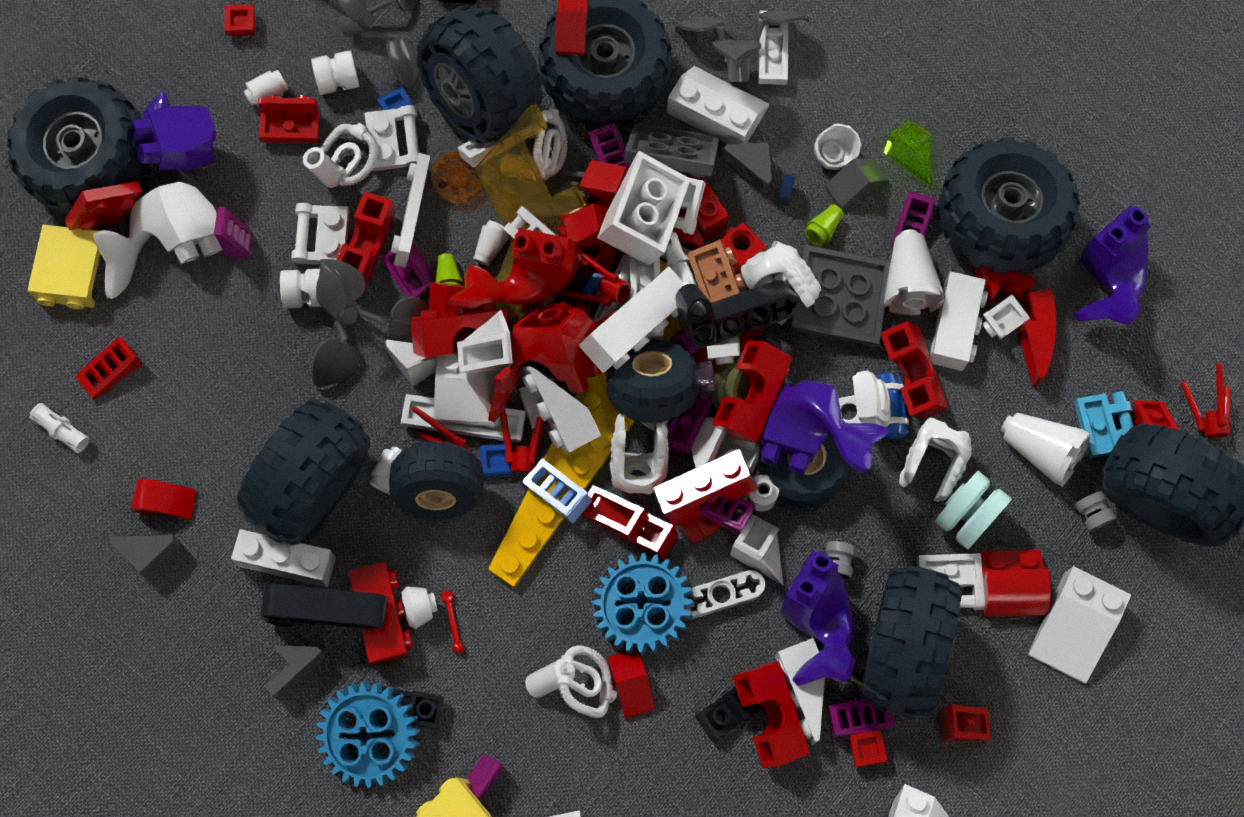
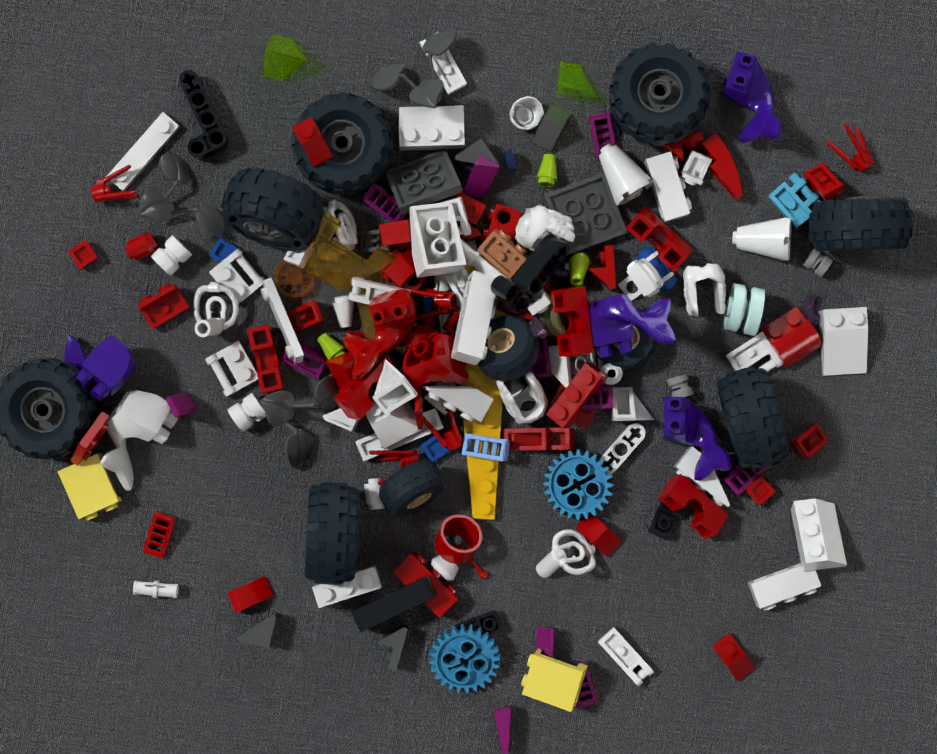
camera: 25 degrees left, 15 degrees up
(264, 86) = (133, 293): white brick -> none
(307, 45) = (141, 246): none -> red brick
(443, 224) = (306, 316): none -> red slope
(463, 565) = (463, 527): none -> red piece
(741, 184) = (481, 178): none -> magenta slope
(800, 347) = (578, 266): none -> lime cone
(829, 371) = (606, 274): none -> red slope
(1054, 559) = (808, 308): none -> clear purple arm

